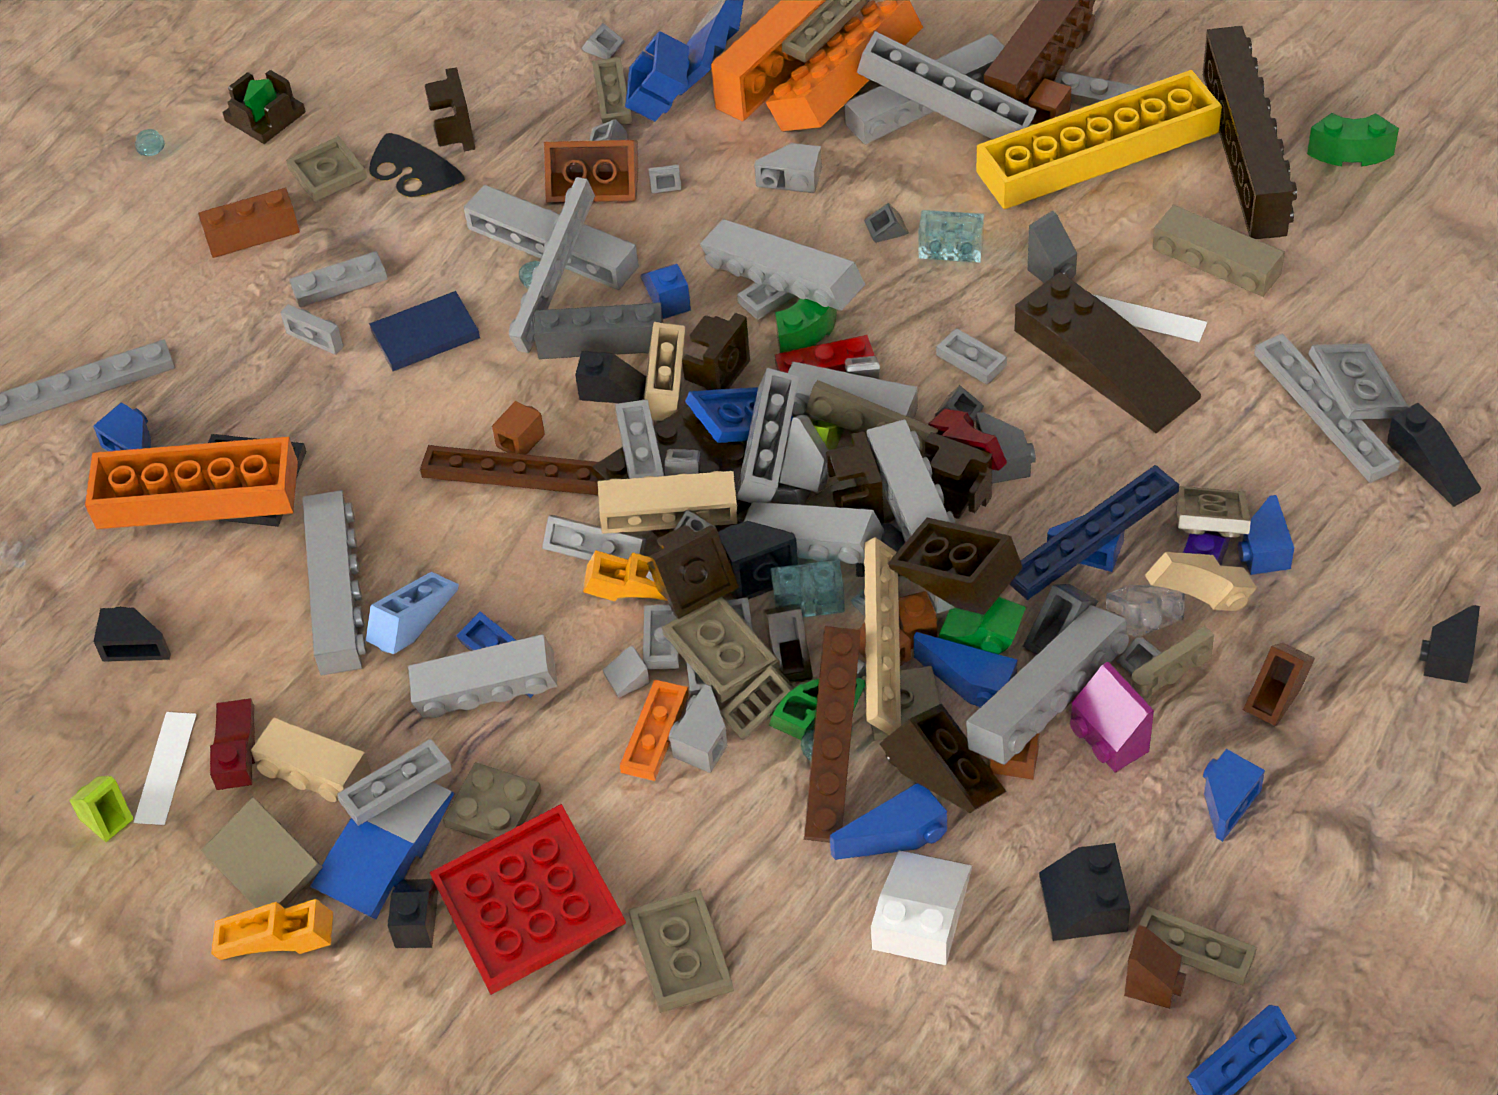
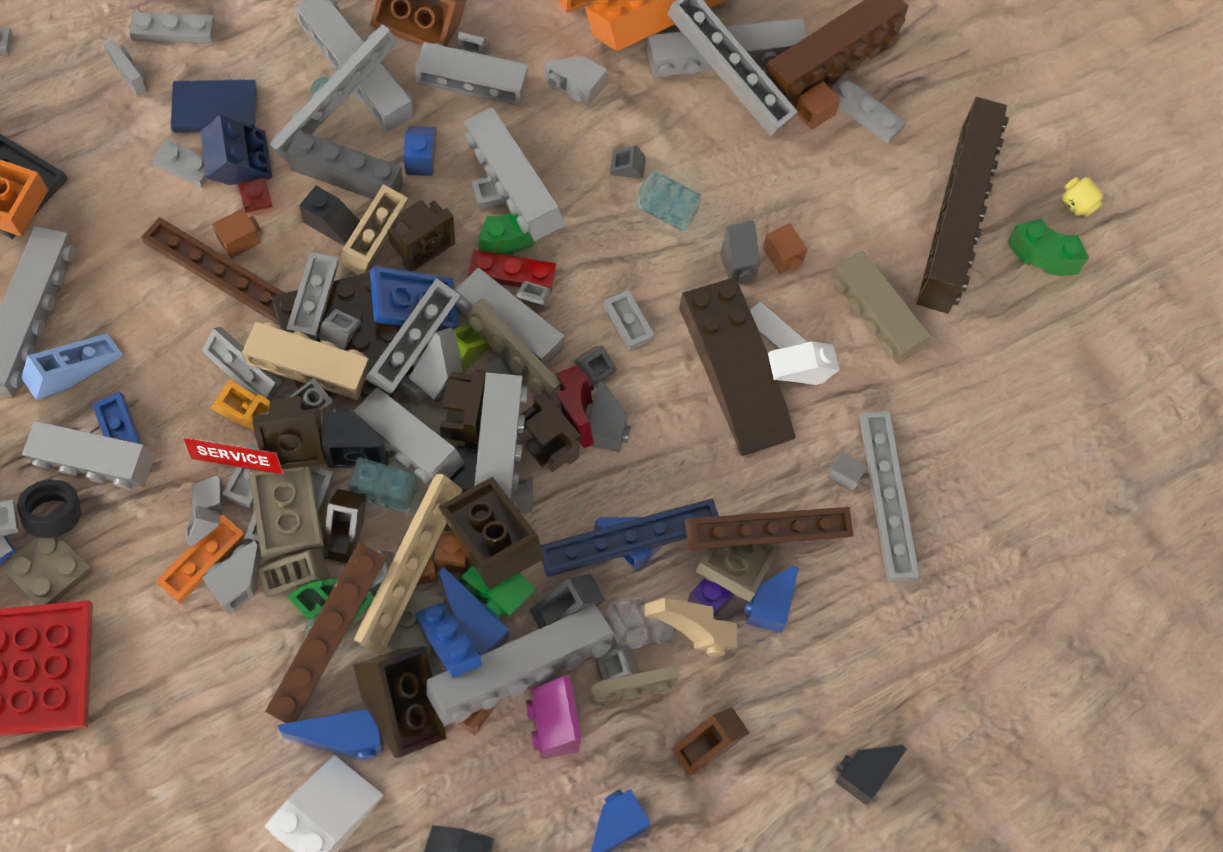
camera: 10 degrees right, 15 degrees up
(422, 393) = (181, 163): none -> light grey plate
(468, 727) = (54, 524): none -> black tyre
(473, 359) = (235, 151): none -> dark blue slope
(515, 389) = (255, 195): none -> clear red plate
(636, 697) = (201, 524): none -> light grey slope
(638, 617) = (233, 455): none -> red sticker
(680, 950) = (118, 770): dark tan plate -> none
(681, 204) = (471, 73): none -> light grey brick
(962, 686) = (448, 639): none -> blue plate
(1093, 236) = (785, 248): none -> dark orange brick
(1098, 139) = (838, 158): yellow brick -> none
(1175, 320) = (804, 363): none -> white slope
(1226, 470) = (768, 528): none -> reddish brown plate
(1271, 405) = (847, 471): none -> light grey slope
(1358, 85) = (1082, 196): none -> light yellow head
(1358, 381) = (927, 484): light grey tile -> none
(1431, 453) = (951, 581): black slope -> none

